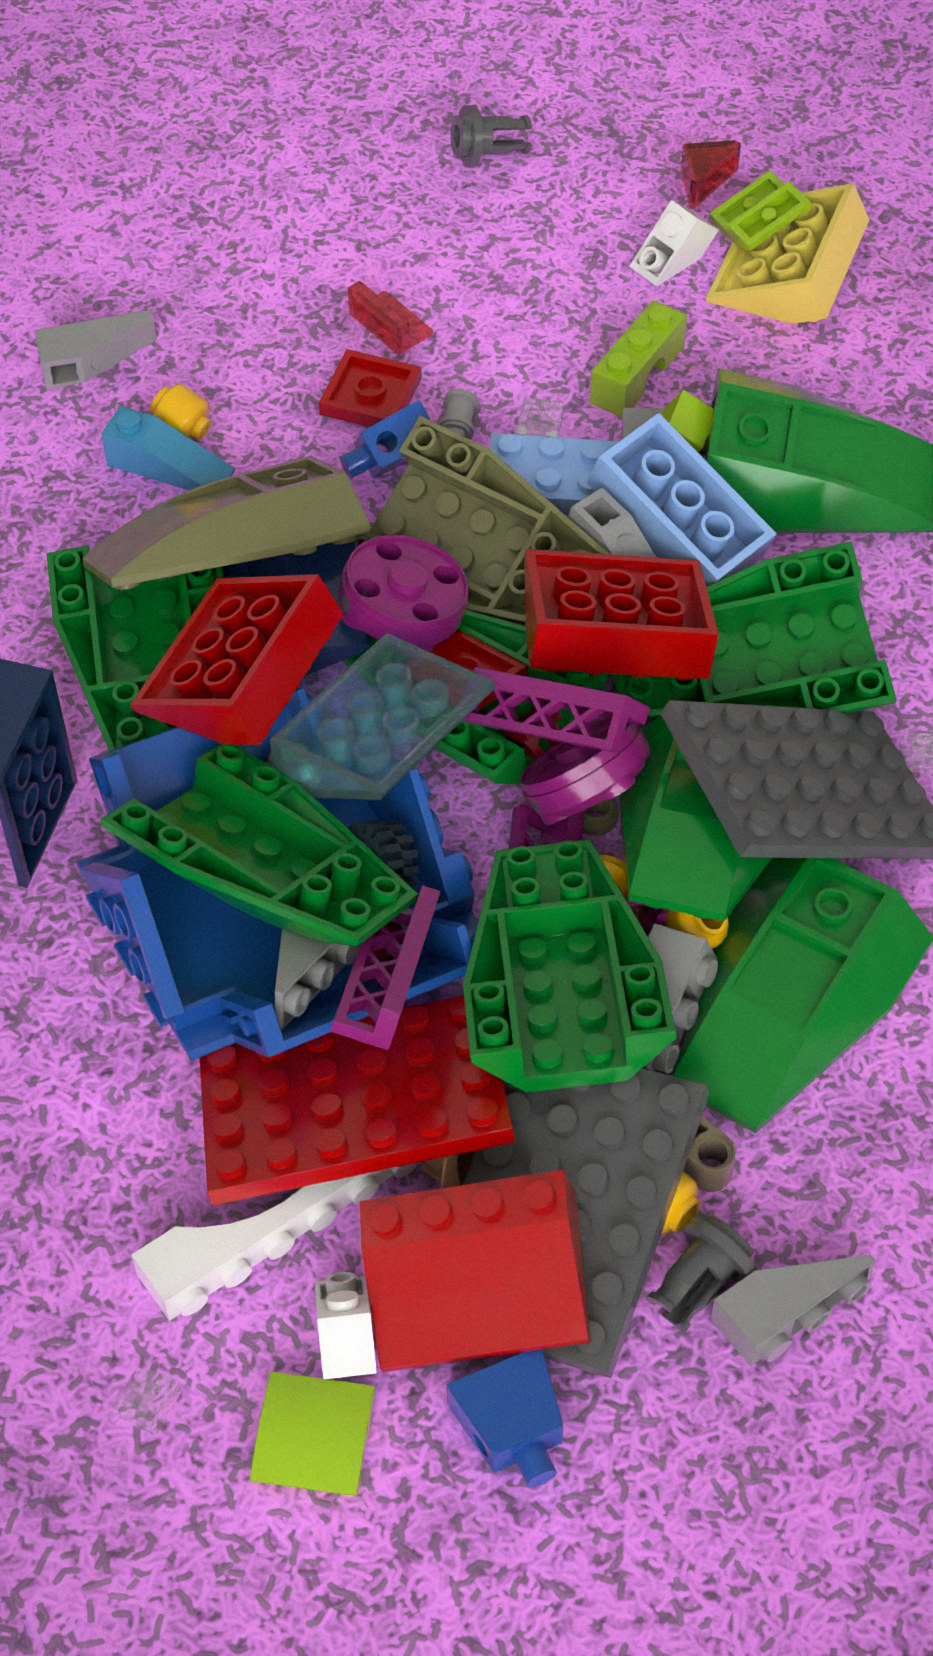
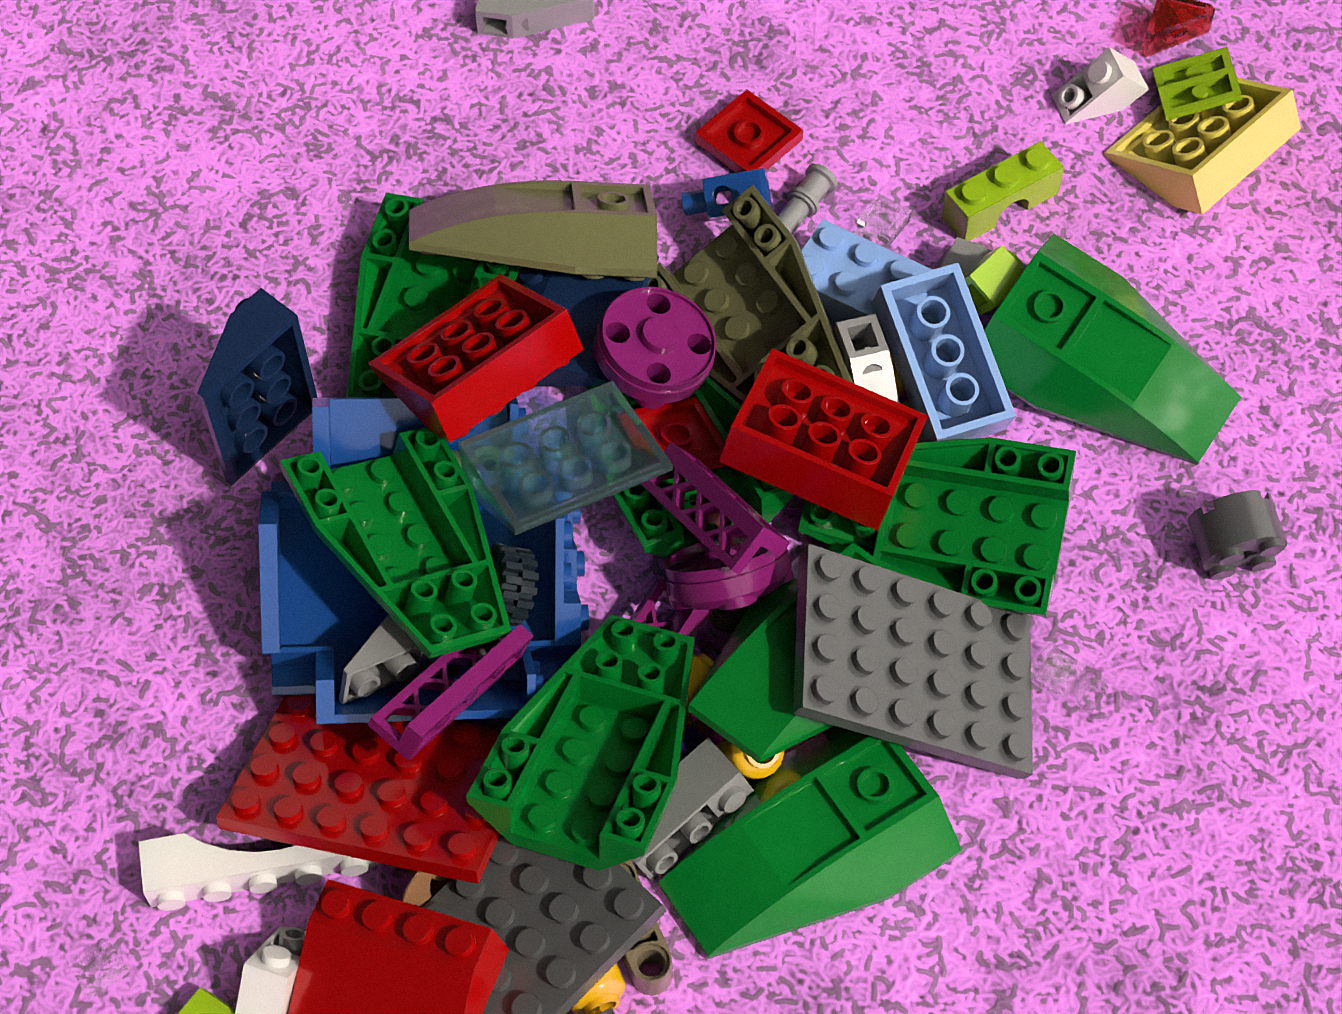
camera: 25 degrees right, 5 degrees up
(159, 451) = (538, 132): dark azure slope -> none
(182, 410) = (572, 100): yellow head -> none
(386, 318) = (803, 71): clear red panel -> none

